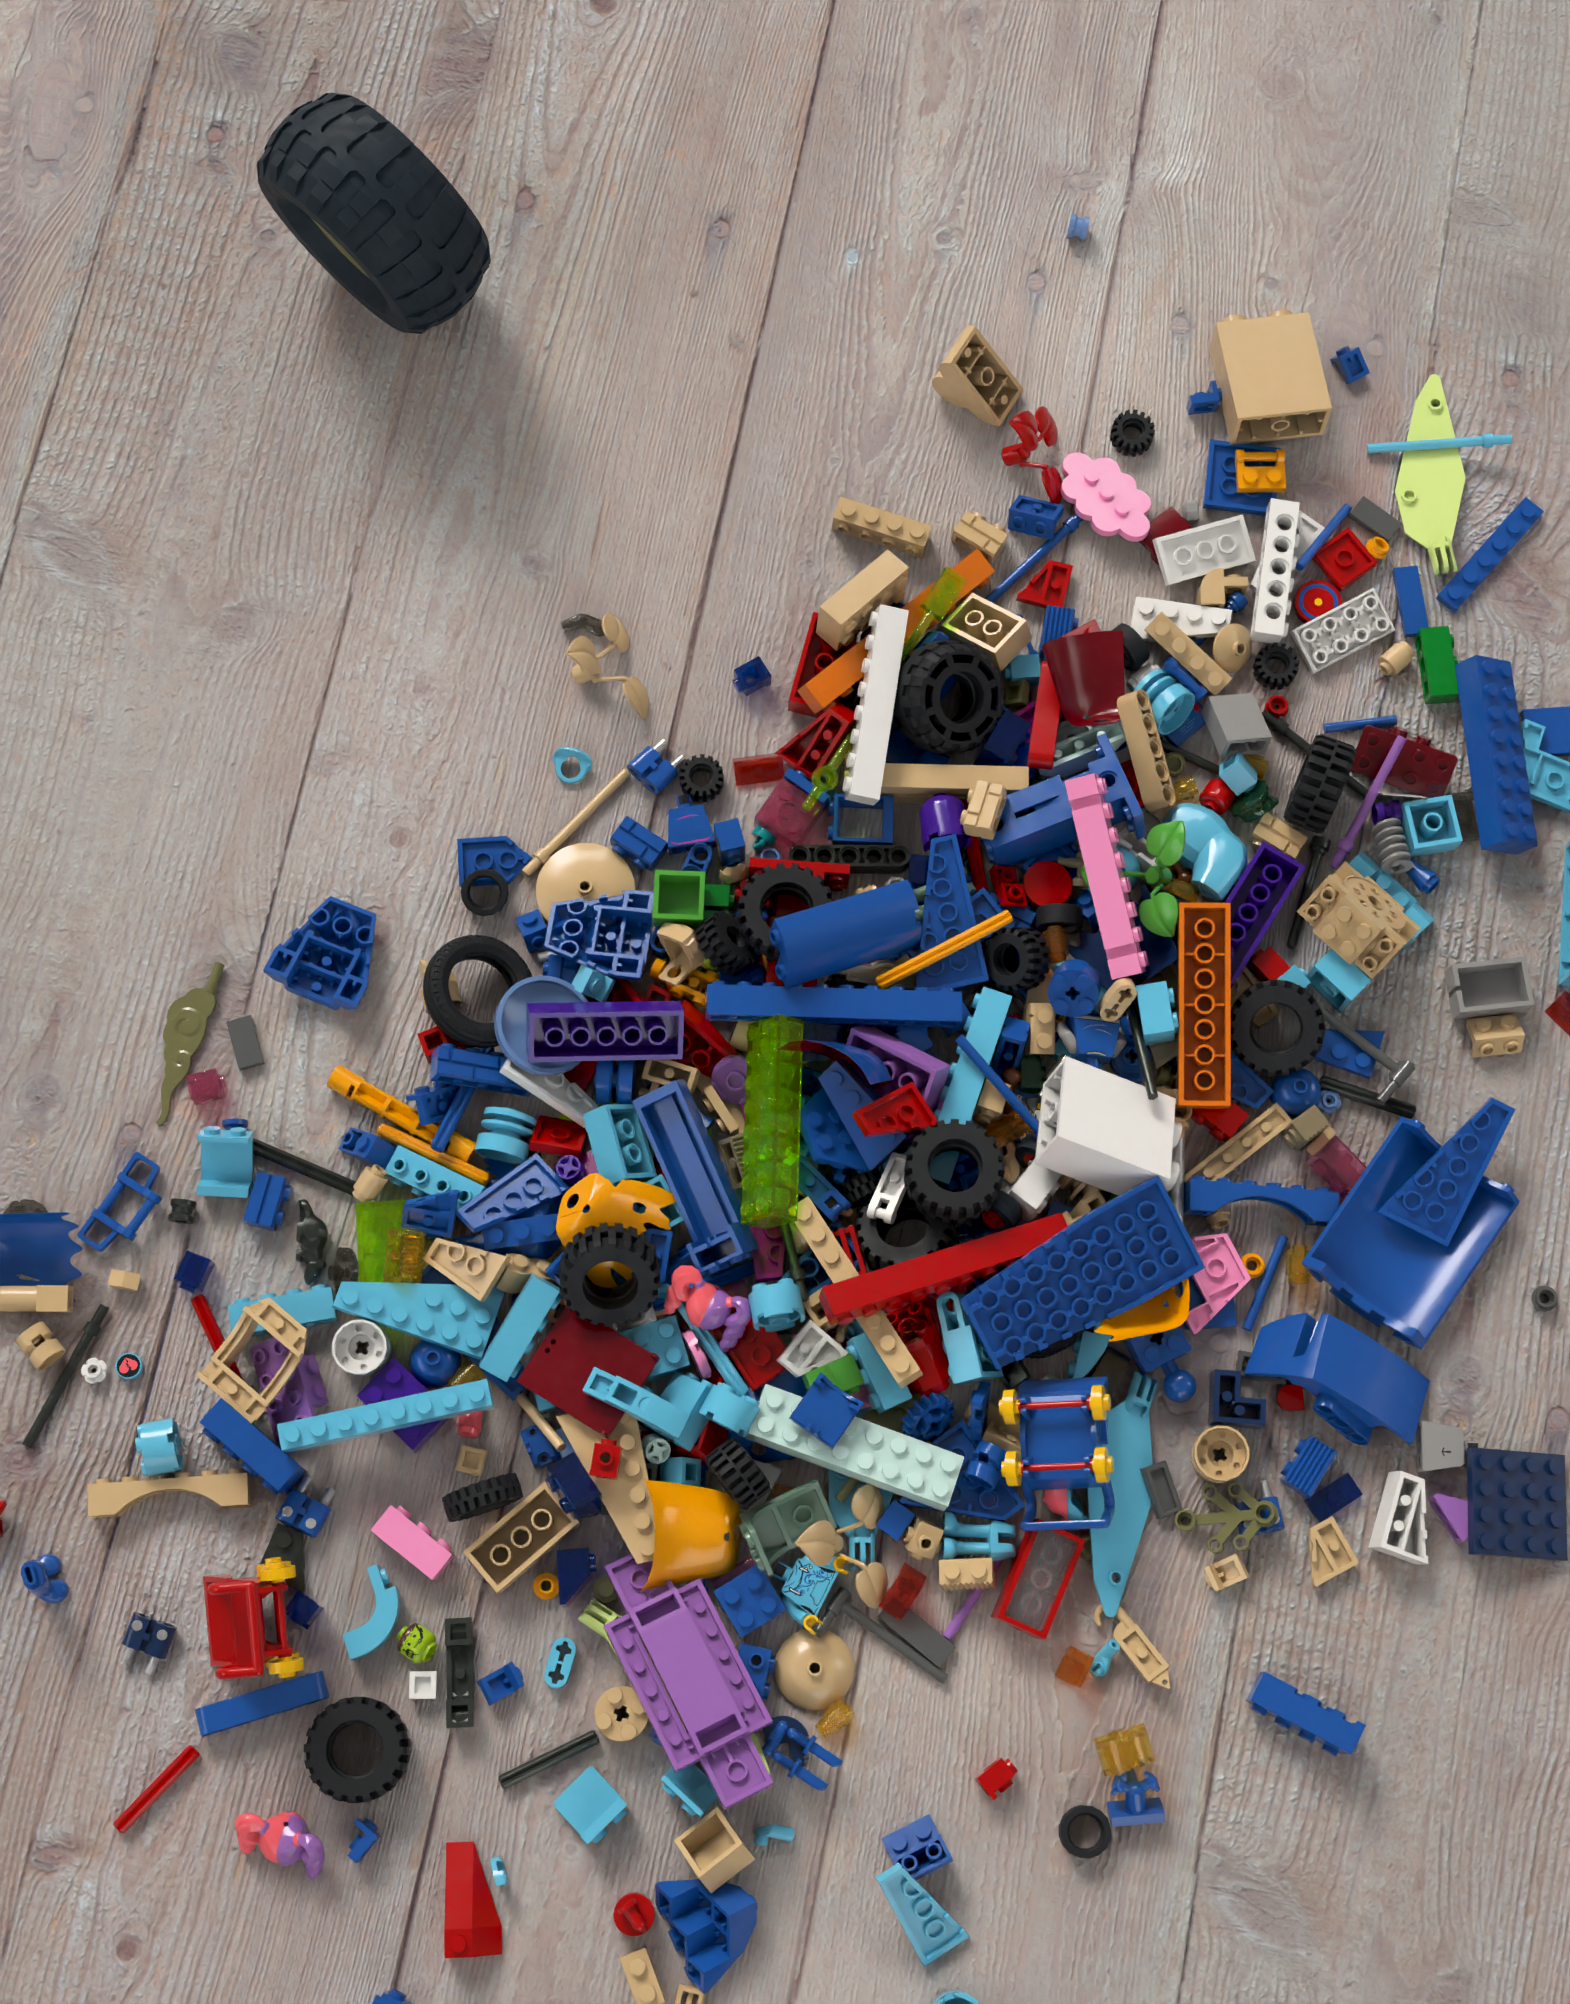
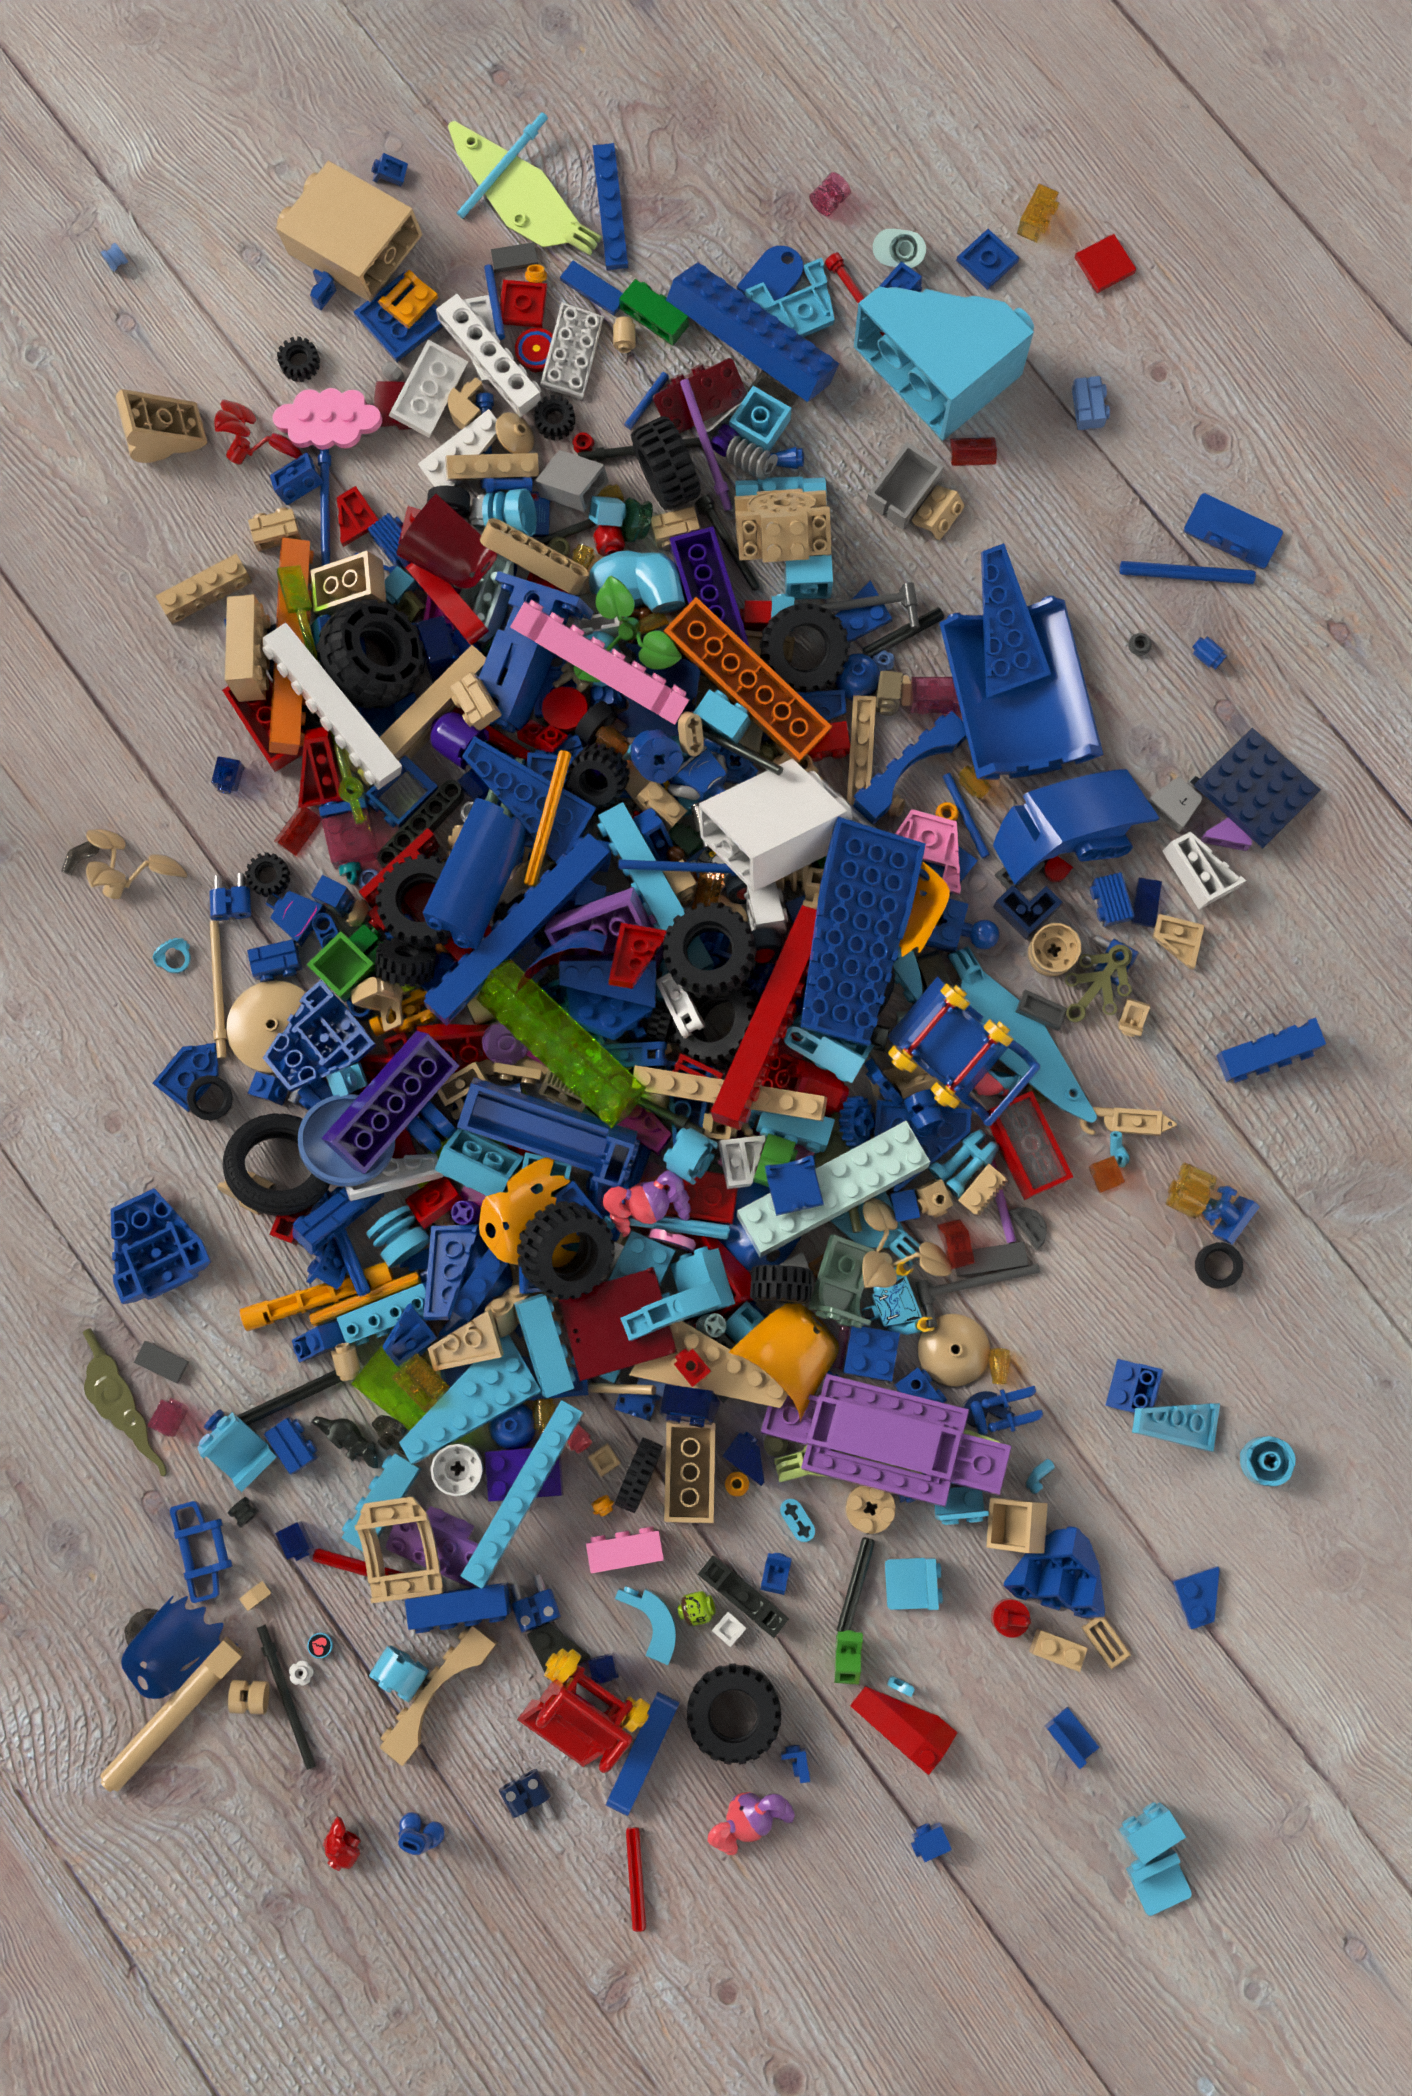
camera: 40 degrees left, 5 degrees up
(433, 1492) = (602, 1505): none -> light orange plate
(484, 1804) = (848, 1657): none -> bright green brick
(729, 1409) = (733, 1251): medium azure brick -> none
(976, 1640) = (1031, 1224): none -> dark grey tile
(996, 1777) = (1133, 1291): red brick -> none

